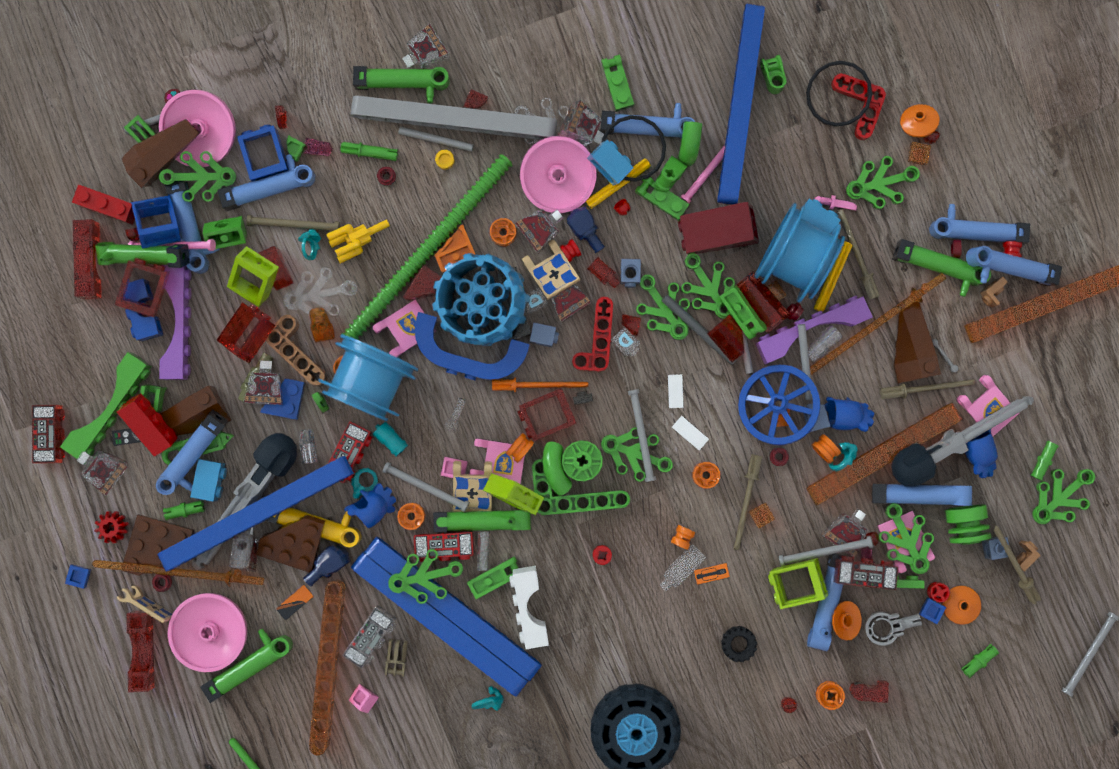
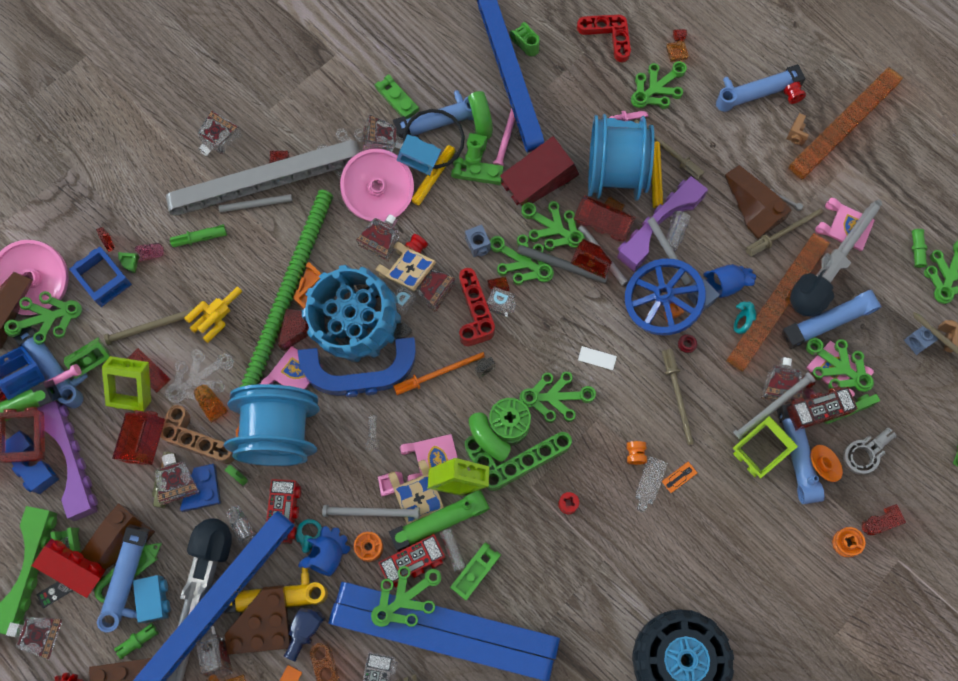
camera: 20 degrees left, 15 degrees down
(266, 187) = (113, 303): medium blue piece -> none
(313, 239) = (173, 330): teal piece -> none
(384, 170) = (222, 246): dark red plate -> none
(387, 435) = (318, 481): teal piece -> none
(400, 78) = (174, 176): bright green piece -> none
(444, 159) = (270, 217): yellow tile -> none
(508, 226) = (349, 247): orange wheel -> none
(520, 447) = (445, 434): orange wheel -> none
(533, 630) = (537, 607): white arch -> none
(544, 335) = (424, 326): sand blue brick -> none
(565, 408) = (471, 381): clear red window -> none
(584, 227) = (419, 220): dark blue piece -> none
(603, 272) = (454, 252): clear red hinge -> none
(622, 207) = (446, 192): red hinge -> none
(642, 435) = (554, 376): light grey bar -> none
(675, 389) = (566, 327): white sticker -> none
(712, 480) = (630, 379): orange wheel -> none
(730, 635) = (747, 522): black tyre -> none
(742, 312) = (593, 230): bright green plate -> none
(761, 515) = (698, 401): clear orange plate -> none
(789, 701) = (811, 566): clear red hinge -> none
(795, 311) = (639, 213): dark red plate -> none
(823, 68) = (581, 7): black piece -> none
(826, 448) = (726, 317): orange wheel -> none
(915, 296) = (734, 159): clear orange piece -> none
(919, 126) = (664, 26): orange dish -> none
(932, 610) = (897, 420): blue plate -> none
(941, 263) = (708, 128): bright green piece -> none
(942, 592) = (898, 401): red wheel -> none
(953, 605) = (912, 408): orange dish -> none
(956, 248) = (748, 110): dark red tile -> none
(968, 524) = (886, 326): bright green wheel -> none
(982, 454) = (864, 262): blue piece -> none
(989, 259) = (775, 101): medium blue piece -> none

